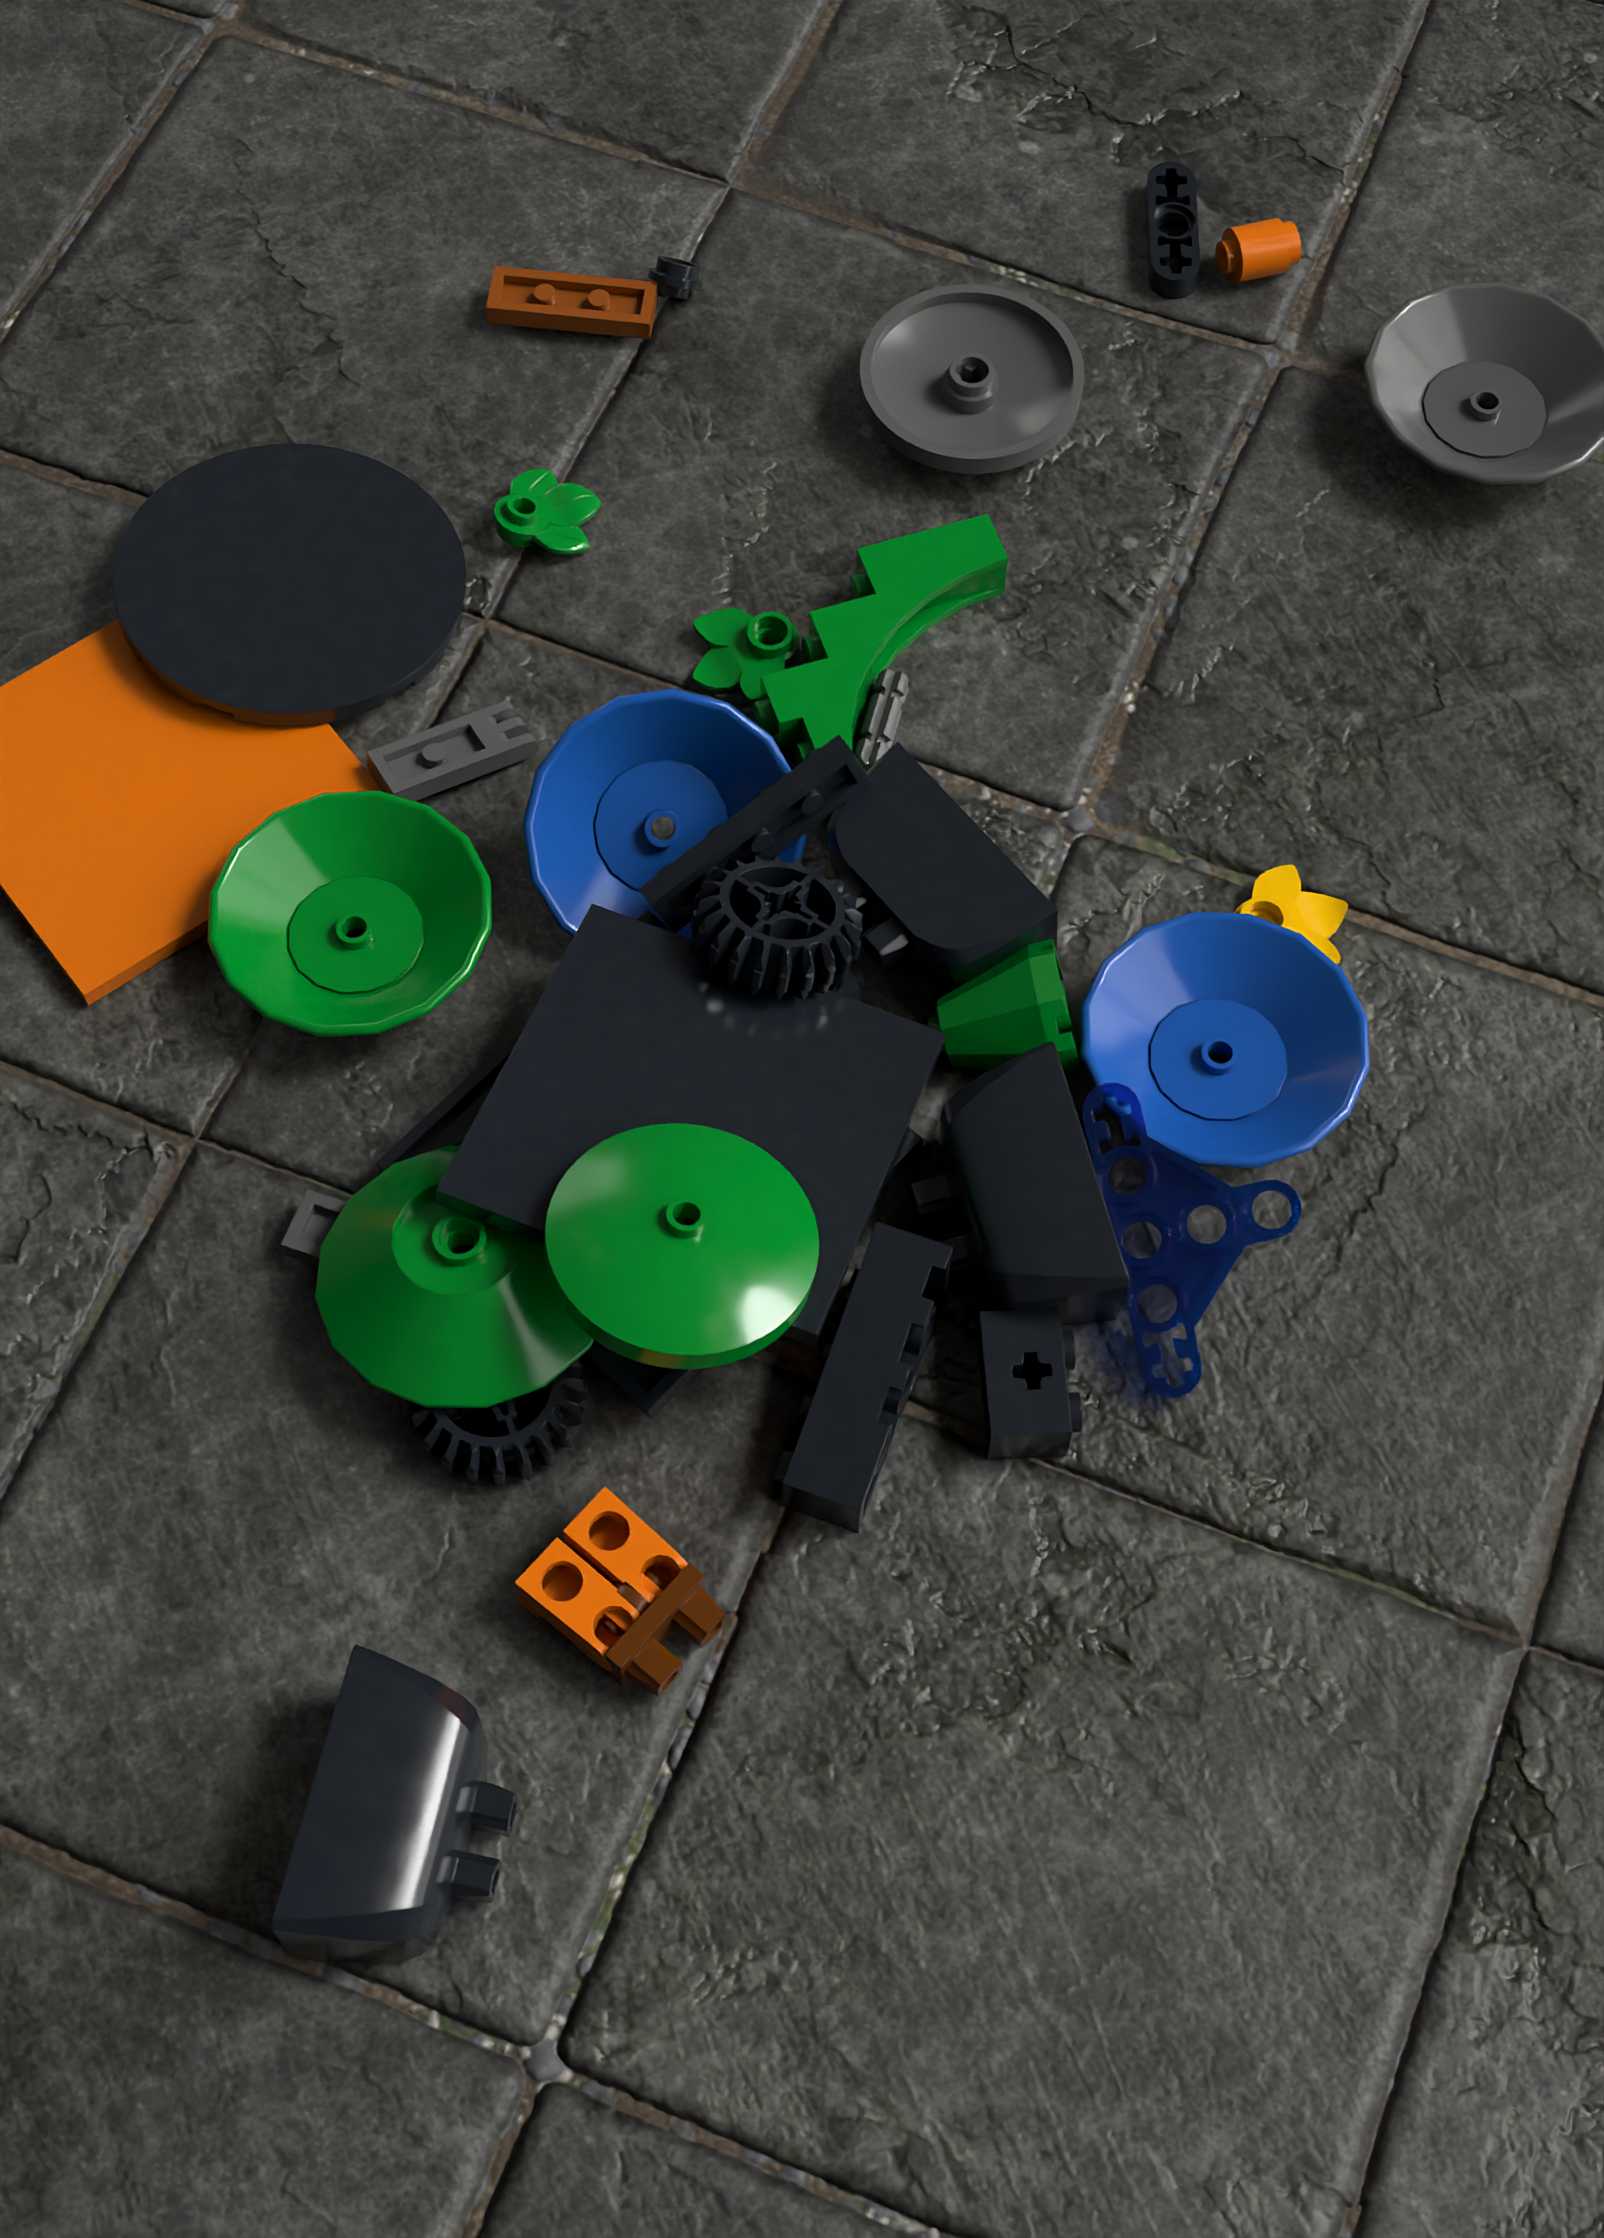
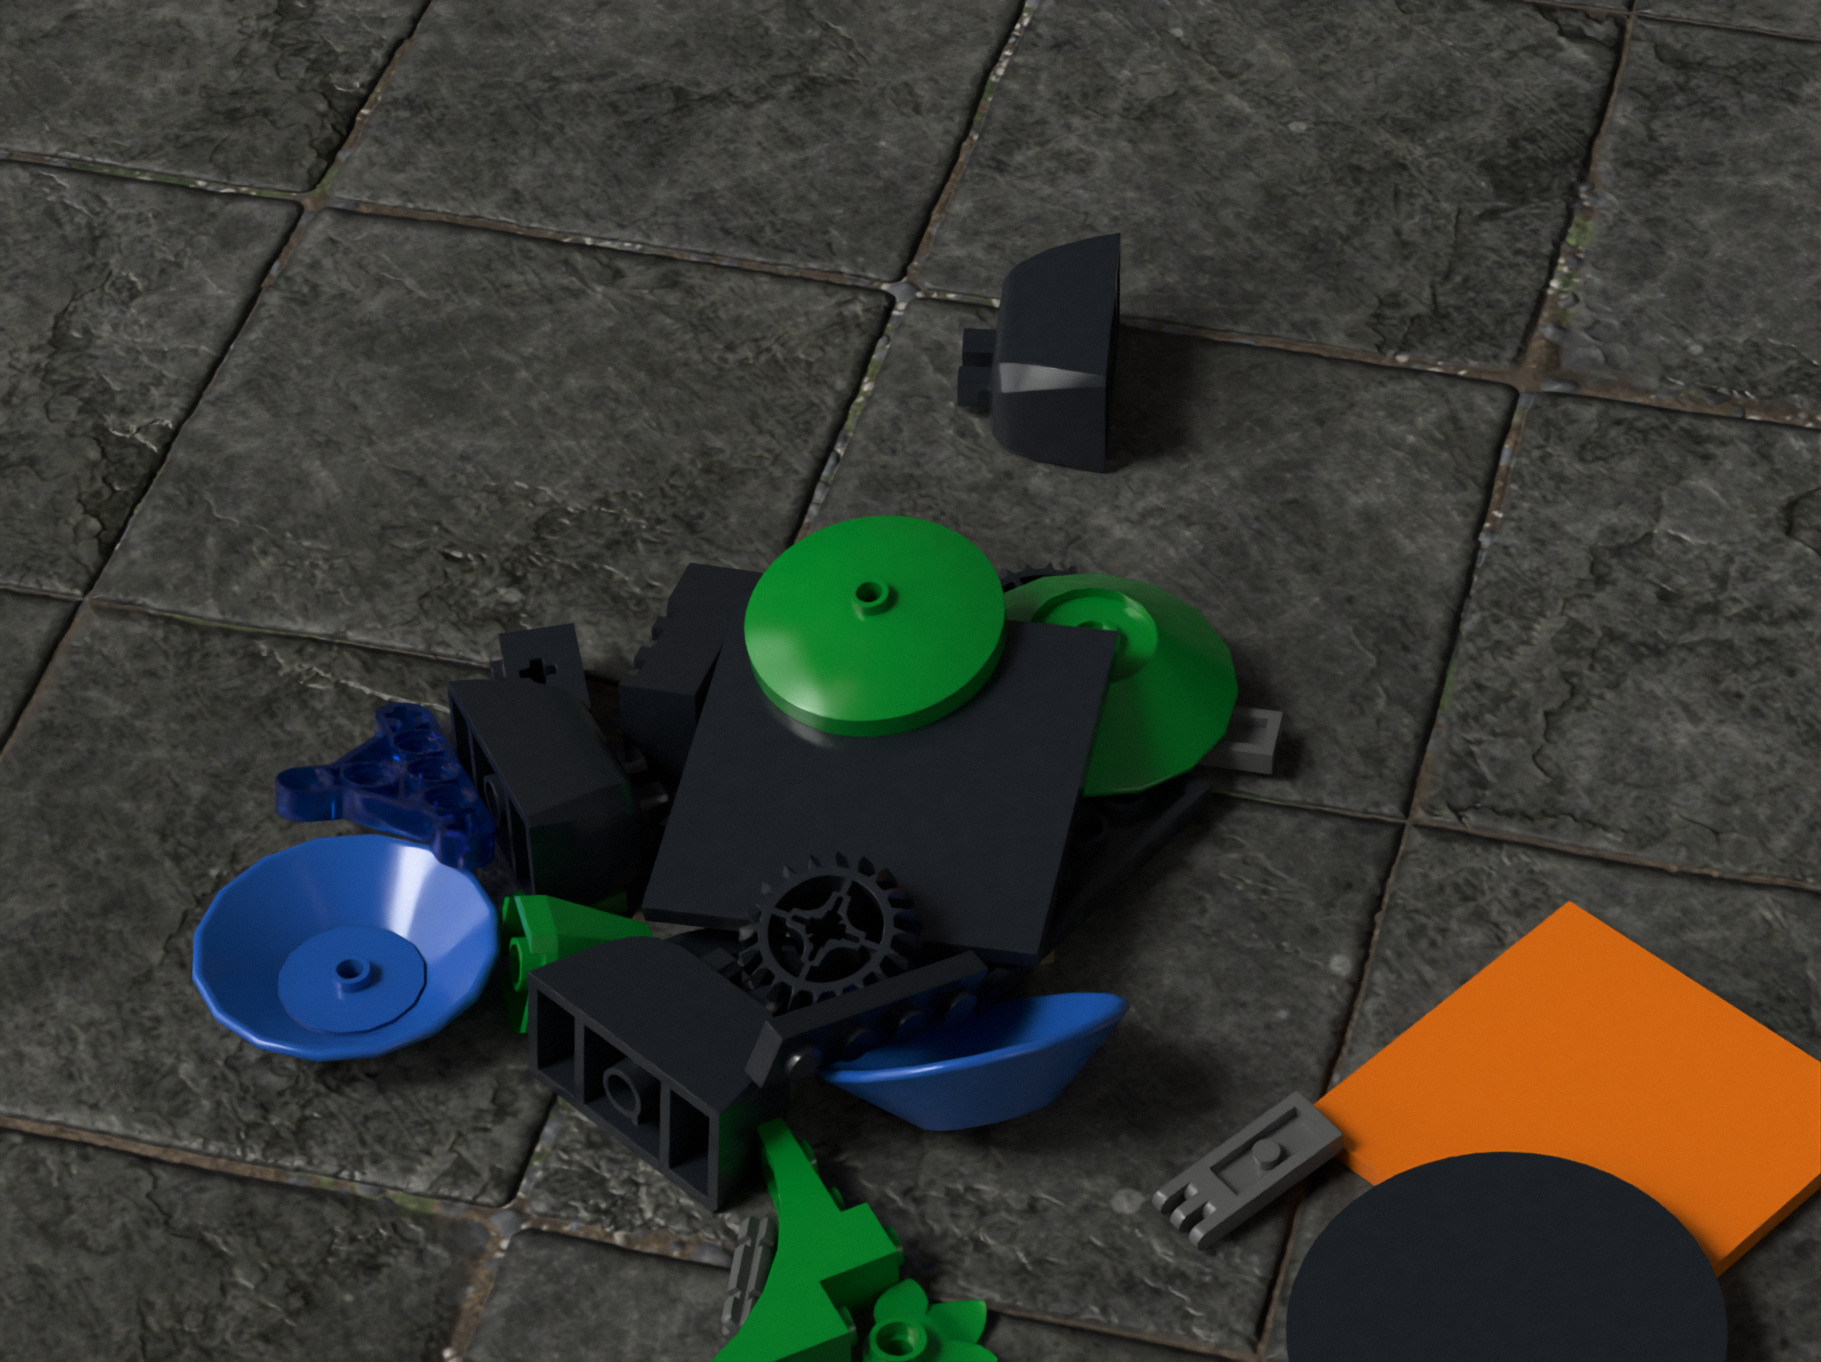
camera: 175 degrees right, 20 degrees down
(339, 869) = (1302, 956): green dish -> none
(620, 1594) = (900, 489): orange hips -> none
(1280, 901) = (267, 1123): yellow plate -> none

